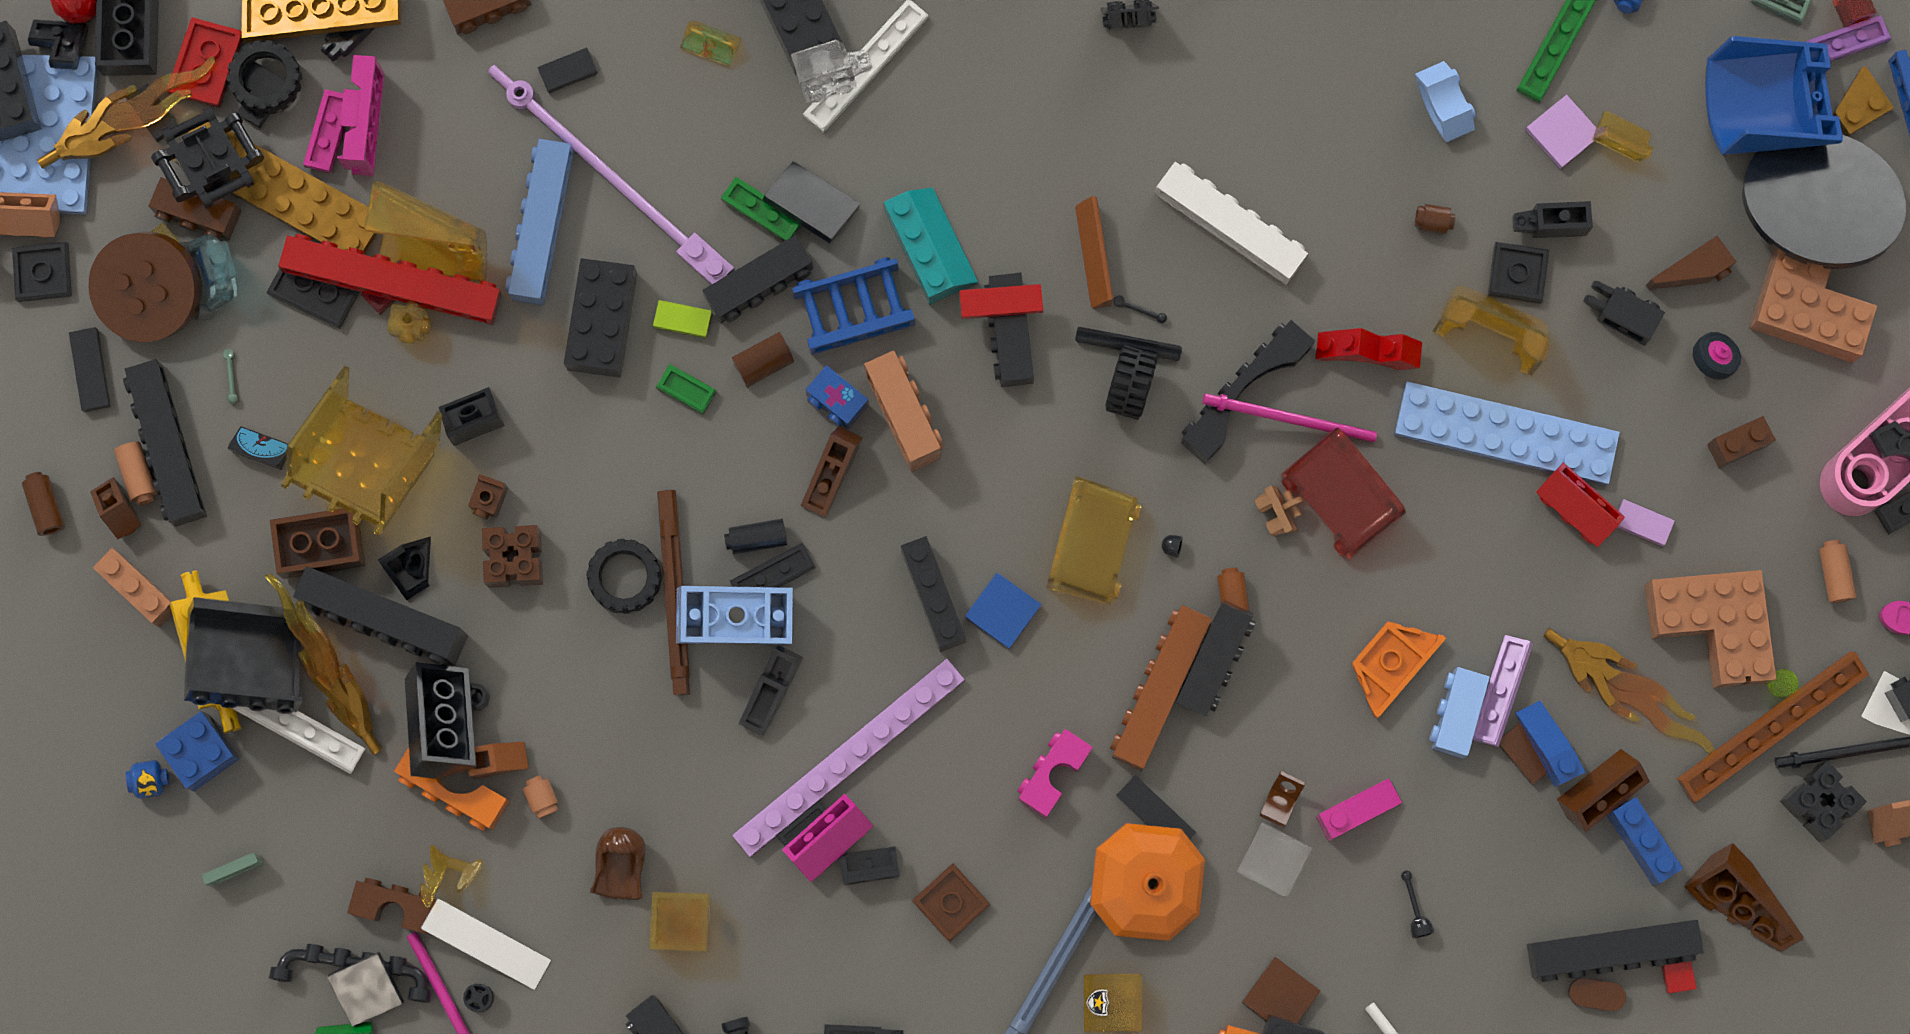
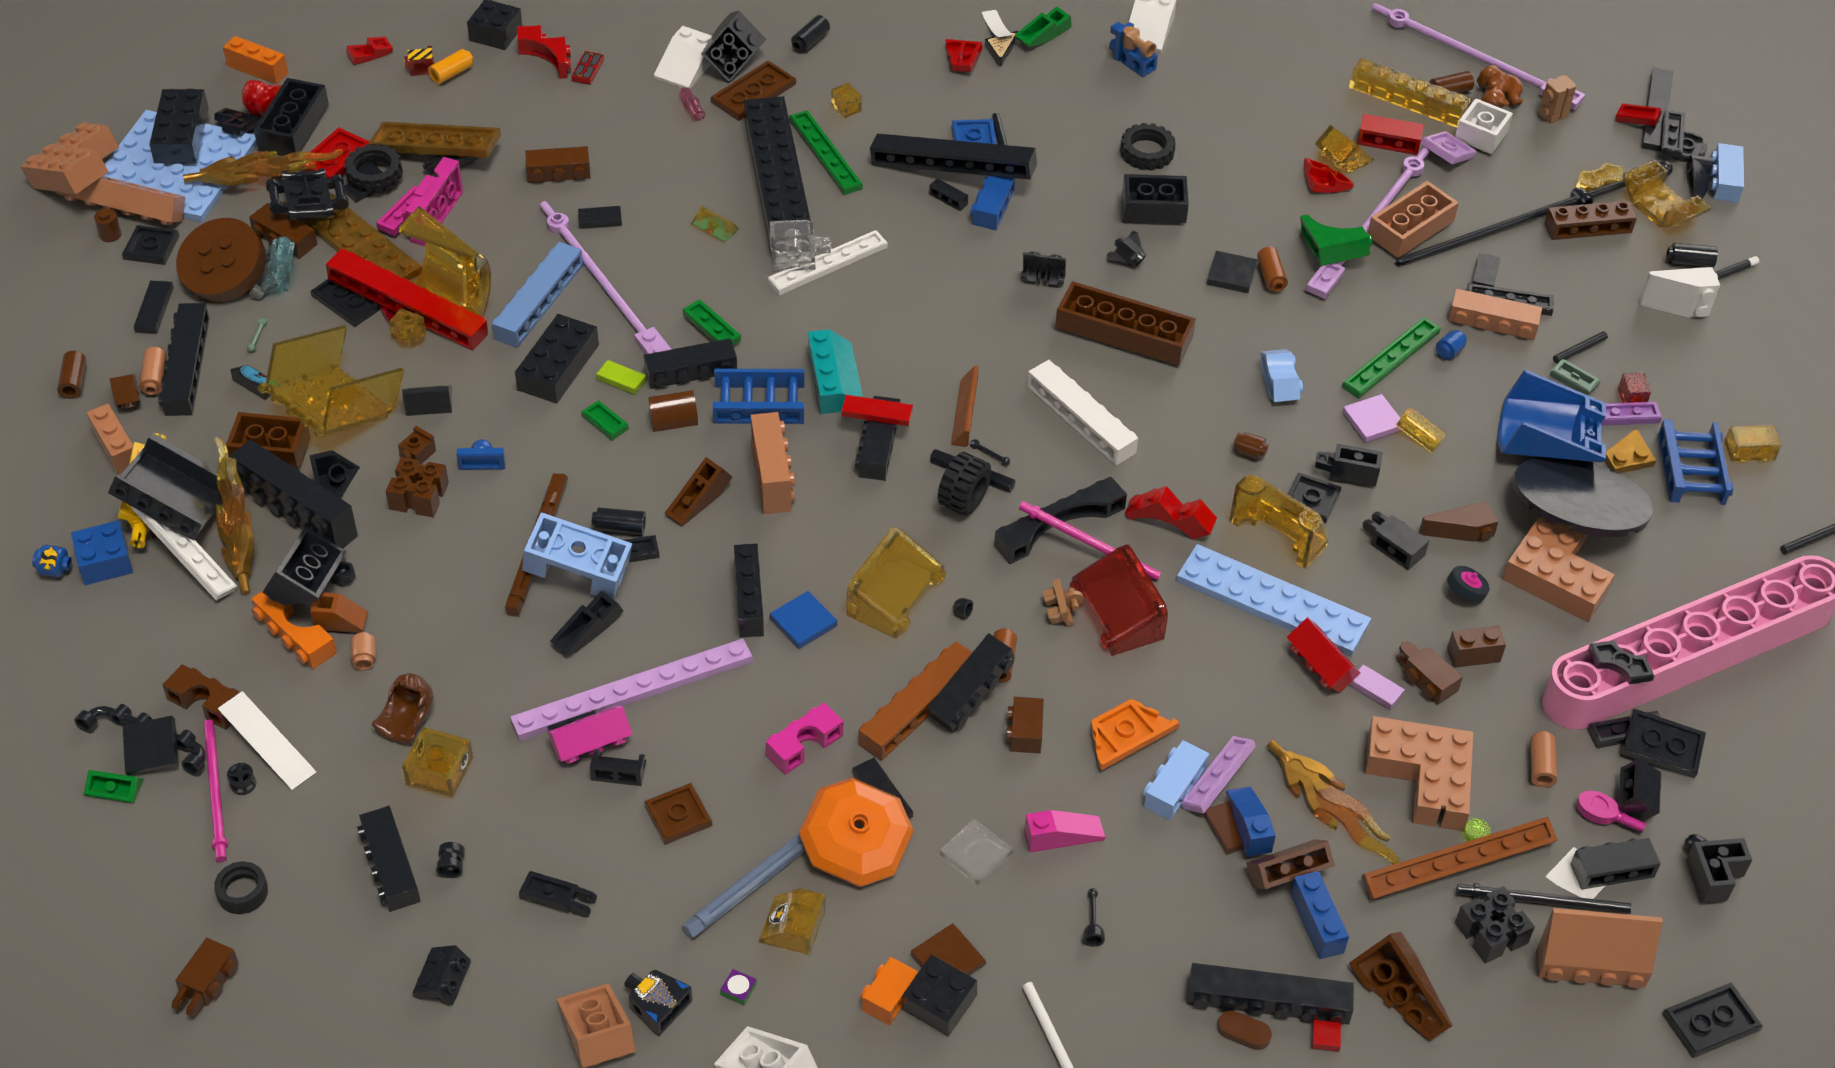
camera: 15 degrees right, 30 degrees down
(232, 869) = (86, 638): sand green tile -> none
(440, 864) = (258, 677): clear yellow piece -> none
(566, 487) = (481, 456): none -> blue tile
(633, 603) = (495, 505): black tyre -> none
(811, 202) = (752, 327): tile -> none
(836, 398) = (722, 447): blue brick -> none
(1248, 74) = (1125, 323): none -> reddish brown brick
(1281, 800) = (996, 807): reddish brown bracket -> none
(1284, 687) = (1026, 725): none -> reddish brown brick
(1695, 491) = (1429, 672): none -> reddish brown hinge

